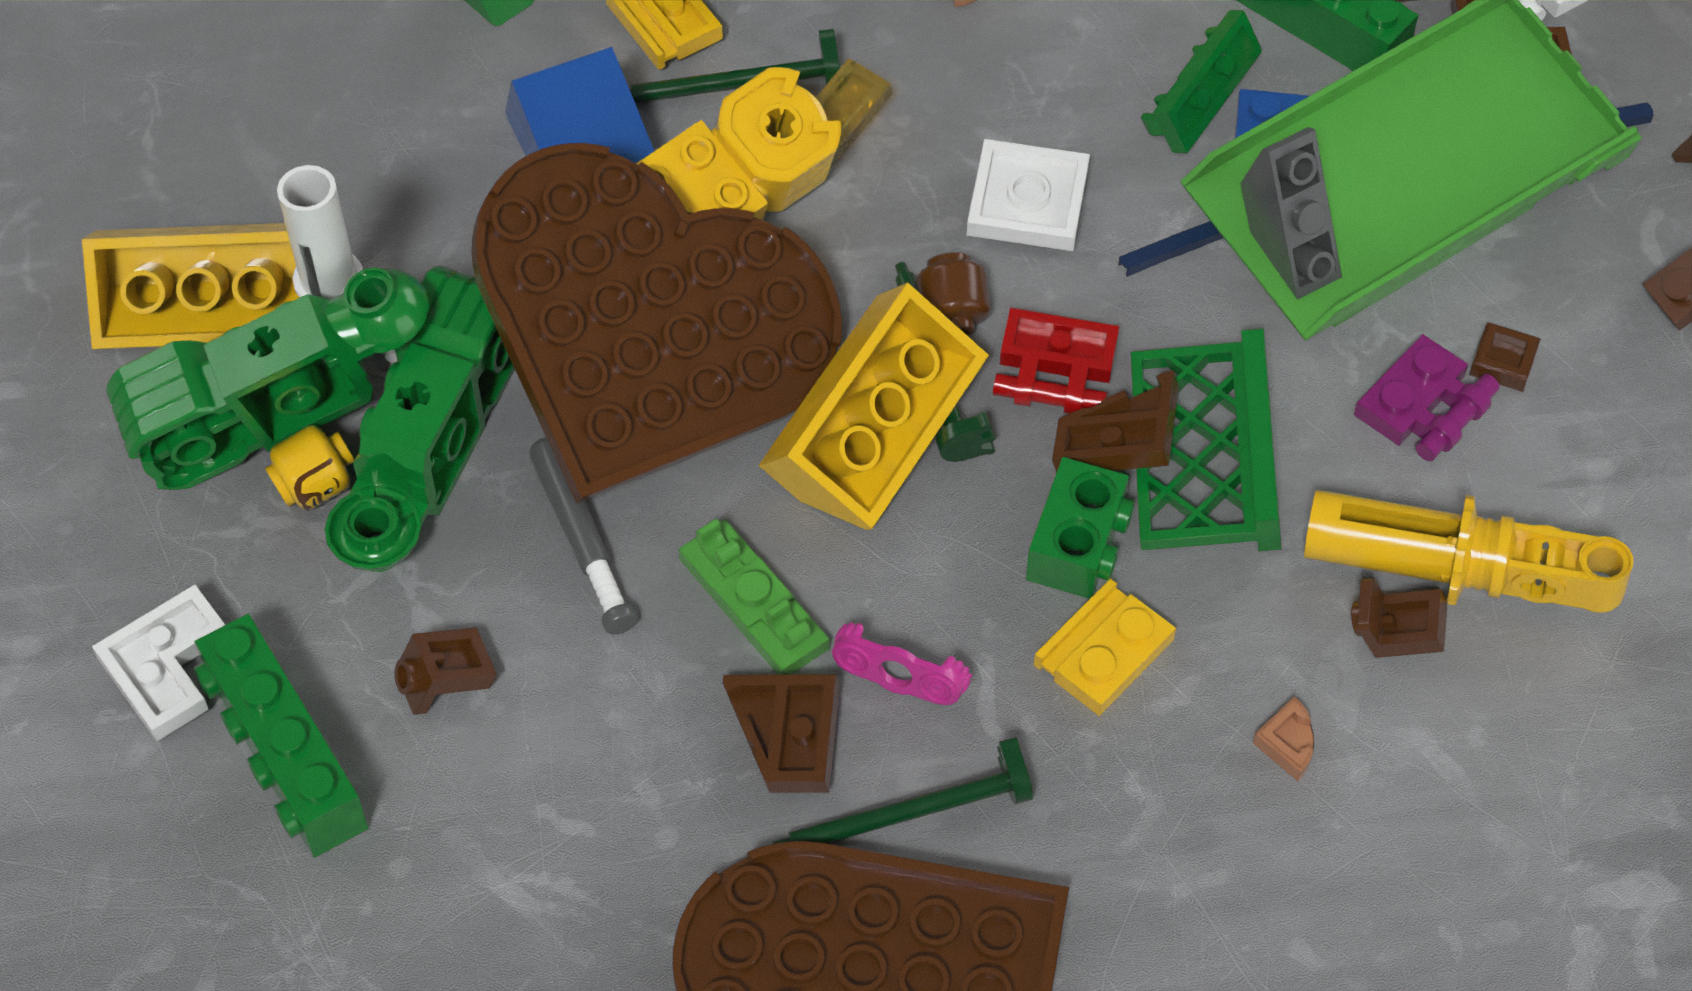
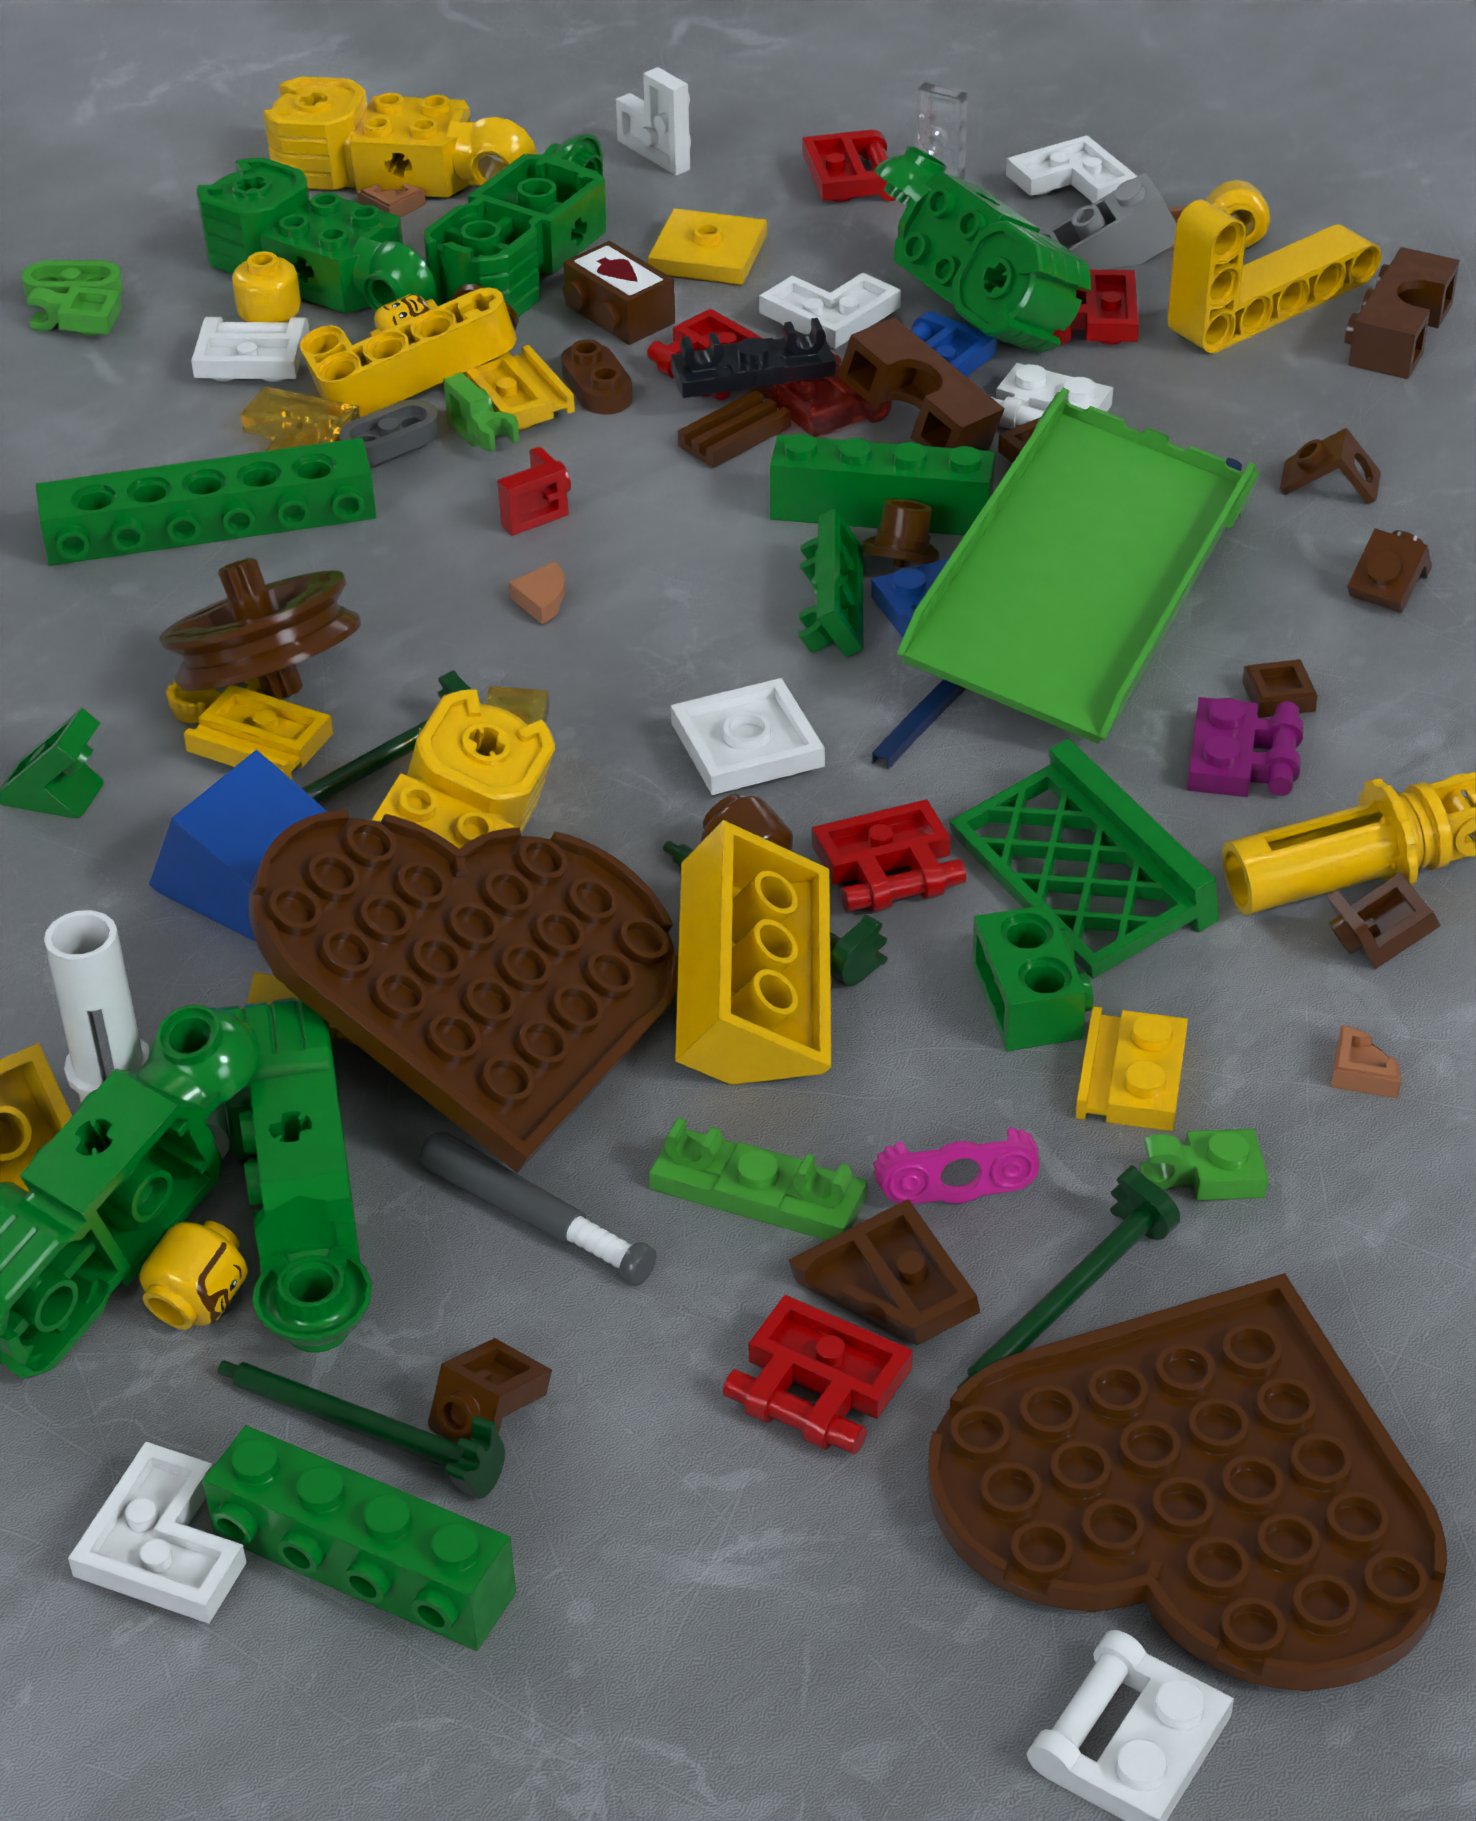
camera: 30 degrees left, 15 degrees down
(399, 718) = (471, 1463): none -> dark green piece
(694, 771) = (828, 1357): none -> red plate
(1102, 765) = (1212, 1161): none -> bright green plate
(1121, 430) = (1011, 875): reddish brown wing -> none
(1292, 213) = (1026, 626): dark grey slope -> none
(1294, 59) = (903, 533): none -> reddish brown piece

